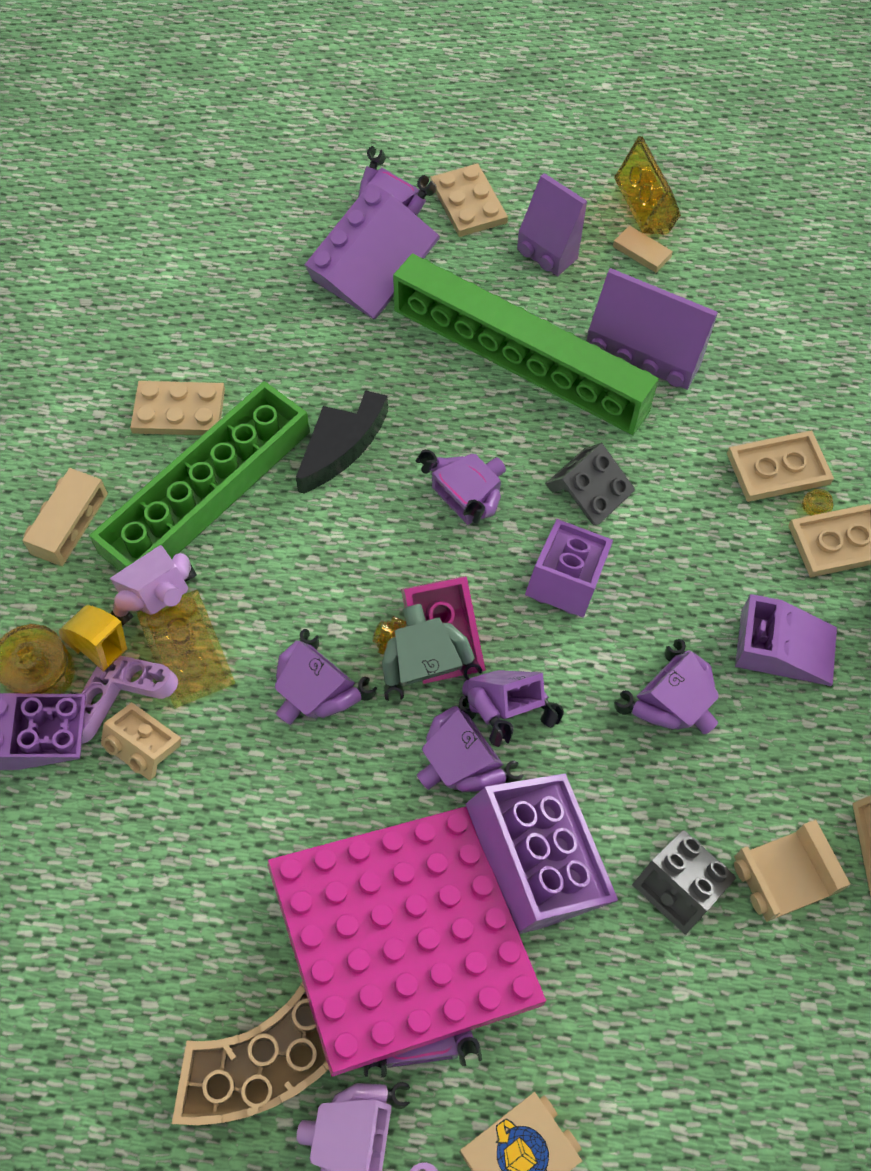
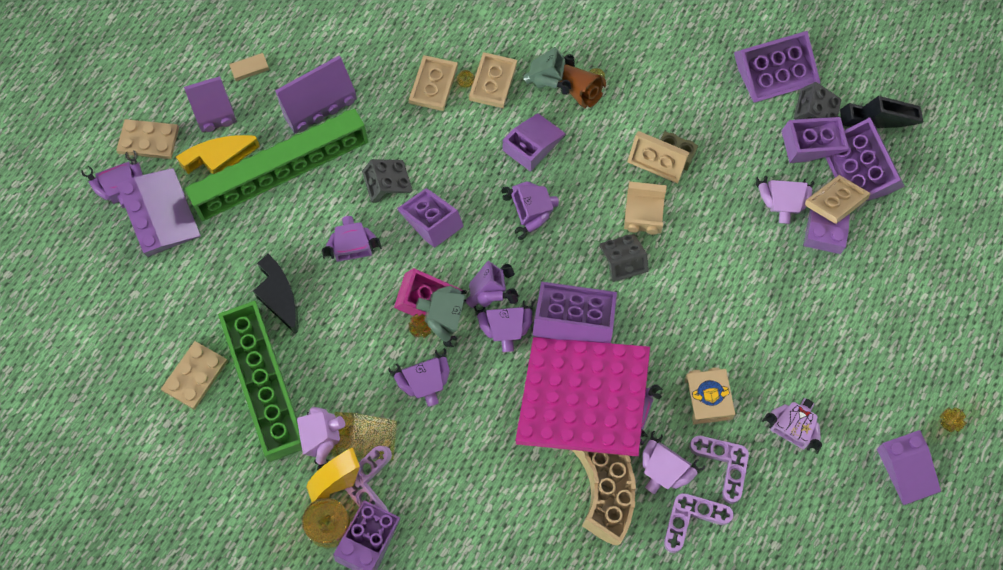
camera: 60 degrees left, 5 degrees up
(65, 516) = (234, 470): tan brick -> none
(138, 740) = (404, 485): tan bracket -> none
(496, 273) = (218, 153): none -> yellow slope
(647, 190) = (215, 41): clear yellow slope -> none

